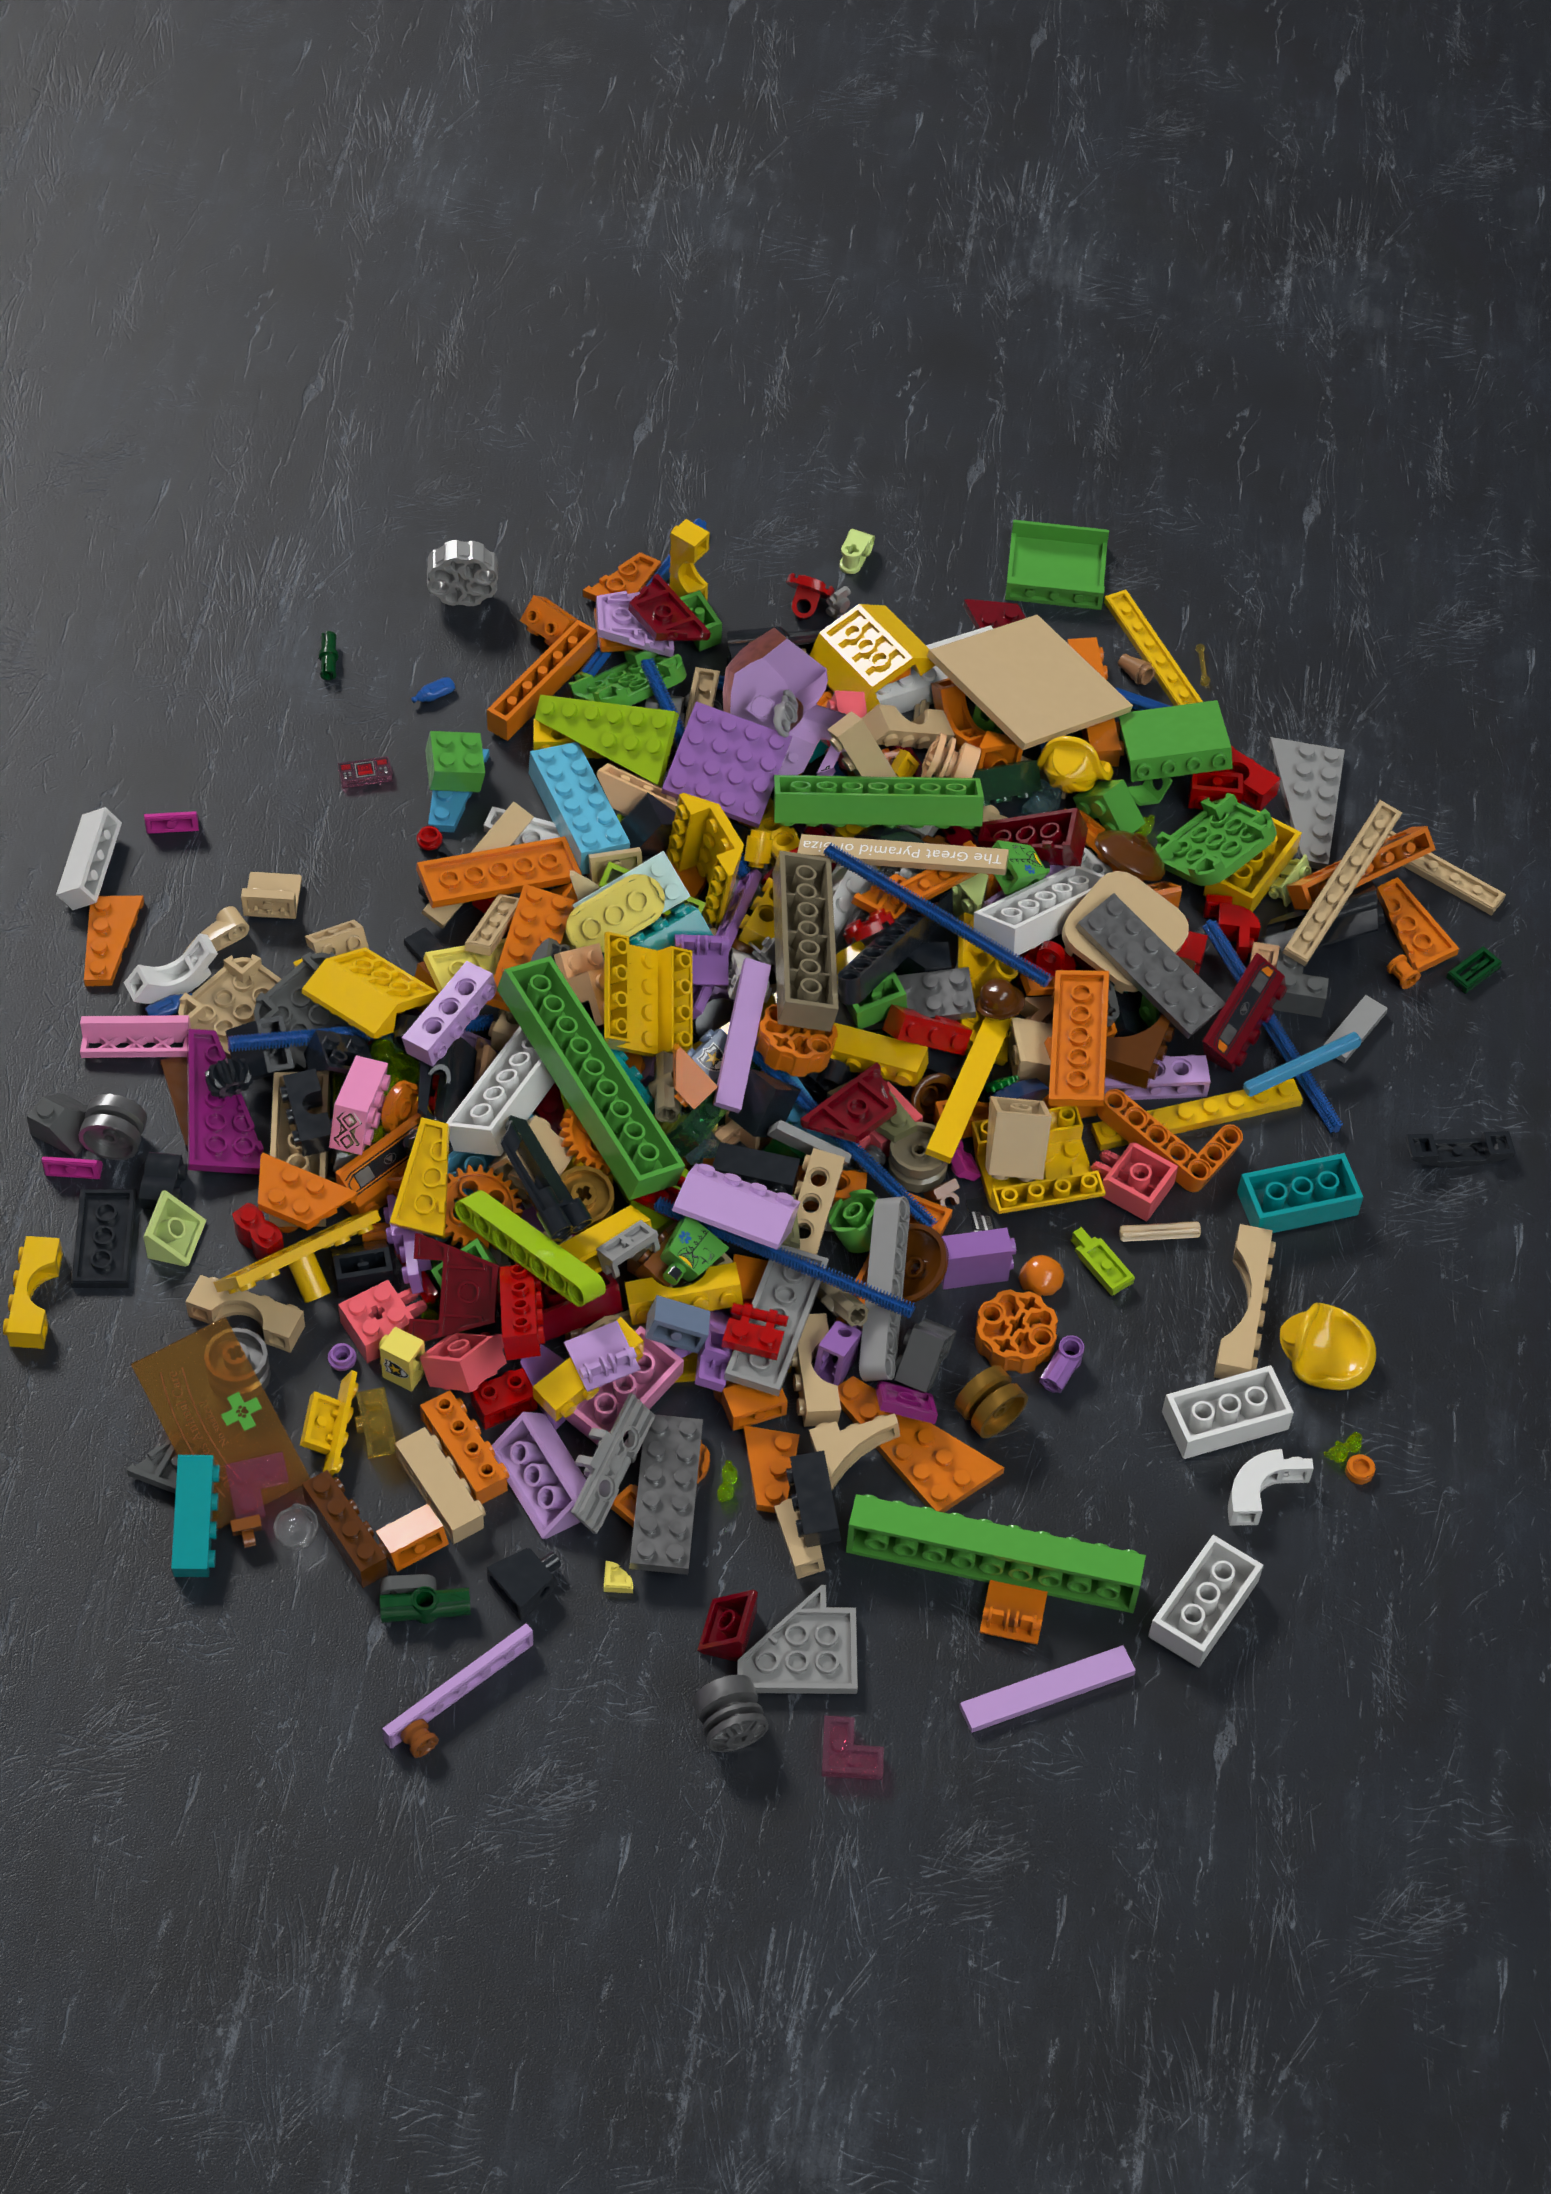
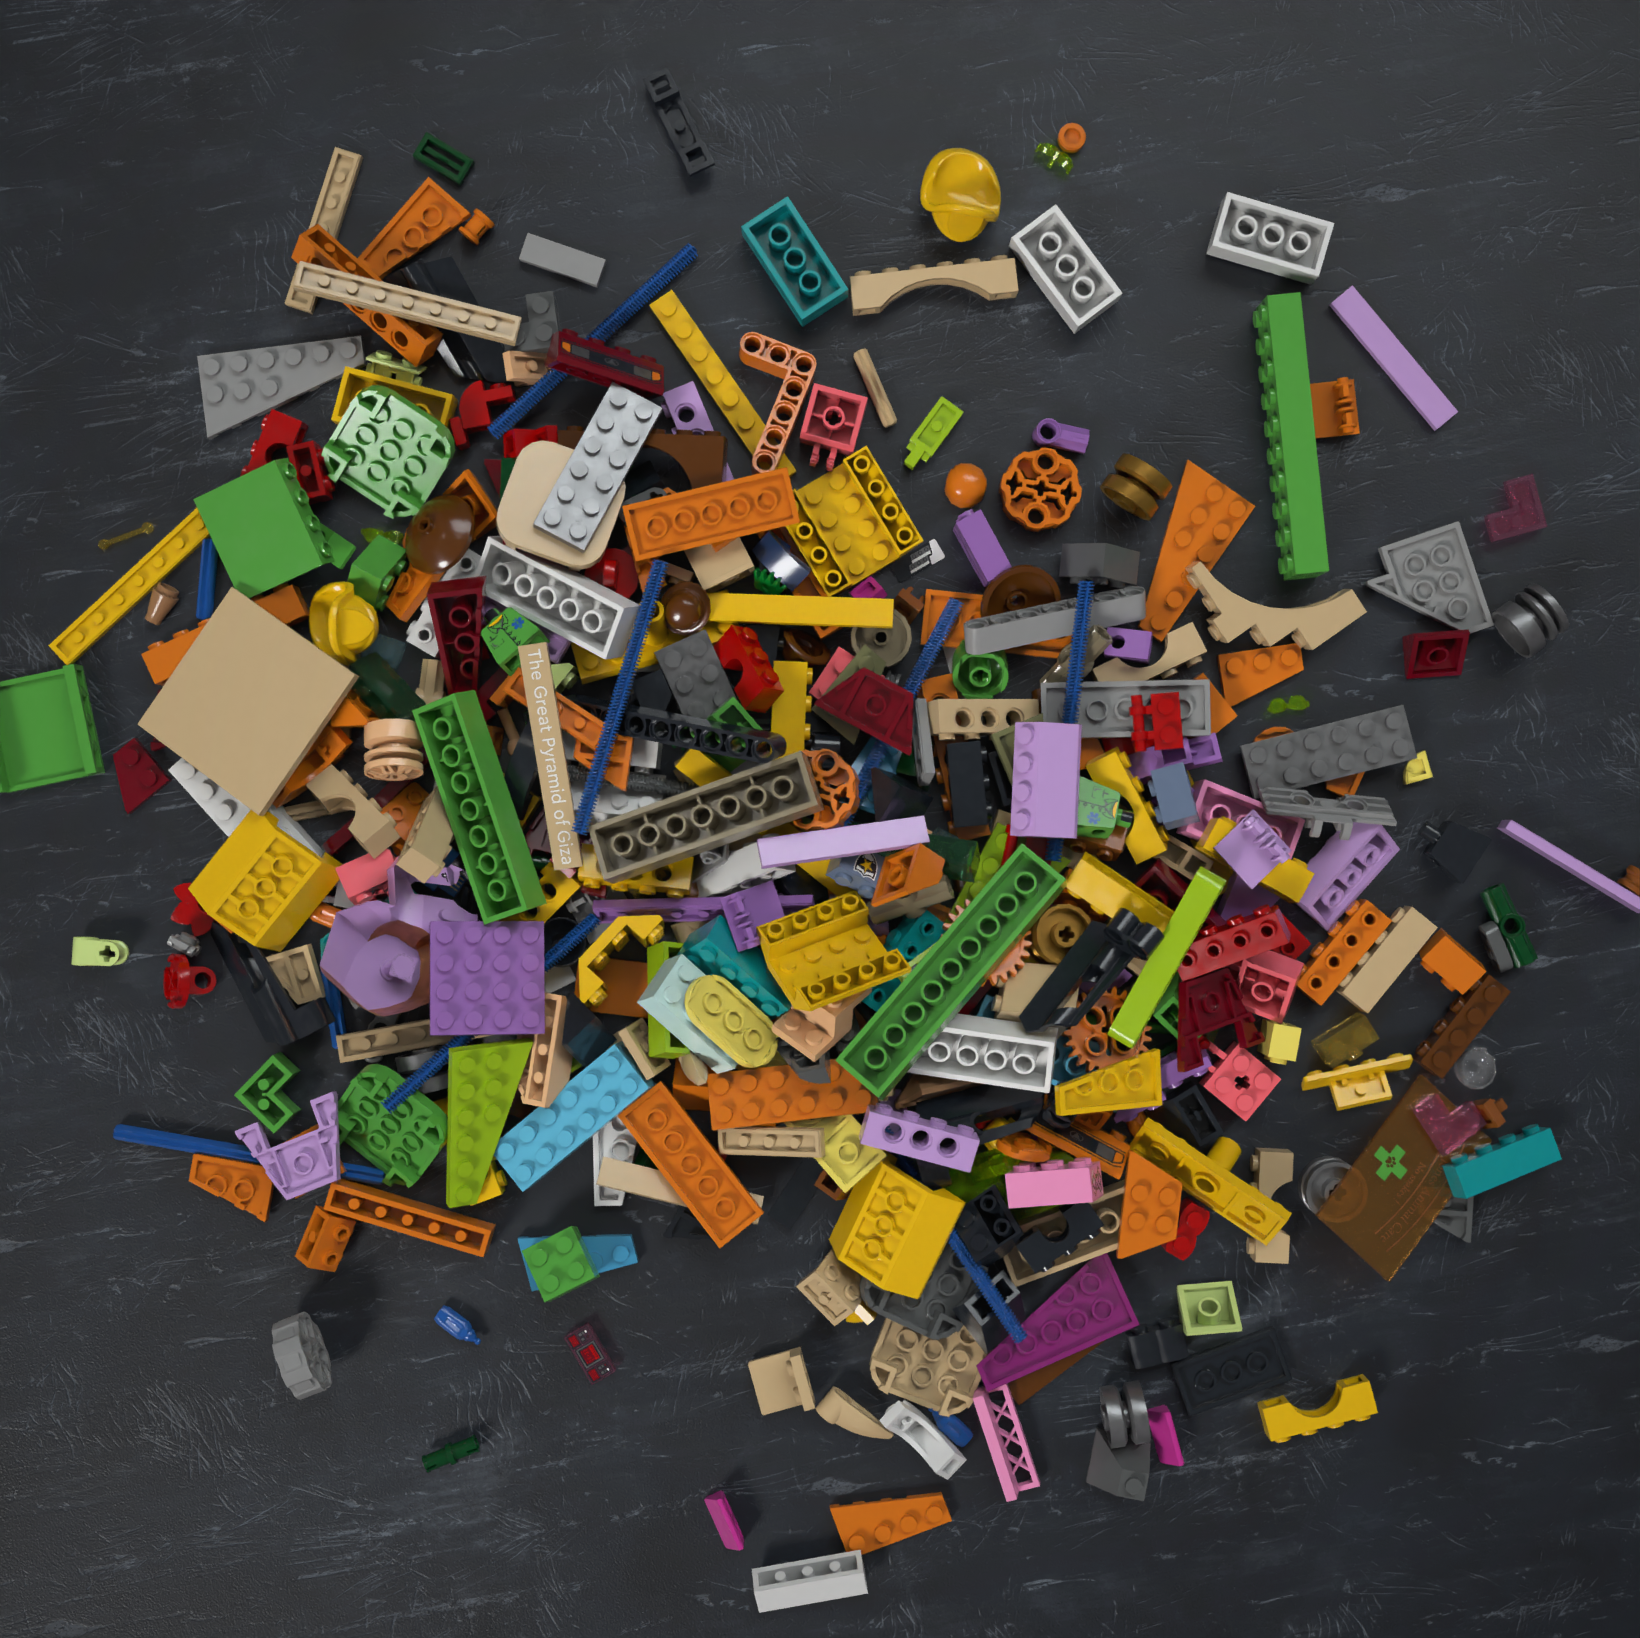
camera: 105 degrees left, 35 degrees up
(228, 1077) = (1040, 1327): black gear -> none
(342, 1350) = (1289, 1102): medium lavender plate -> none
(429, 838) = (654, 1254): red plate -> none
(626, 1246) = (1121, 868): light grey hinge -> none
(666, 614) = (289, 1117): dark red wing -> none
(687, 546) = (212, 1119): yellow arch -> none
(758, 848) = (572, 912): yellow brick -> none
(785, 713) = (412, 941): light grey piece -> none
(813, 1499) = (1307, 612): black brick -> none
(862, 930) = (646, 758): red plate -> none
(904, 764) = (404, 800): yellow plate -> none
(906, 1402) = (1163, 564): magenta tile -> none
(1017, 1138) = (840, 544): tan slope -> none
(1258, 1474) = (1121, 229): white arch -> none
(1302, 1064) = (639, 295): dark azure axle -> none

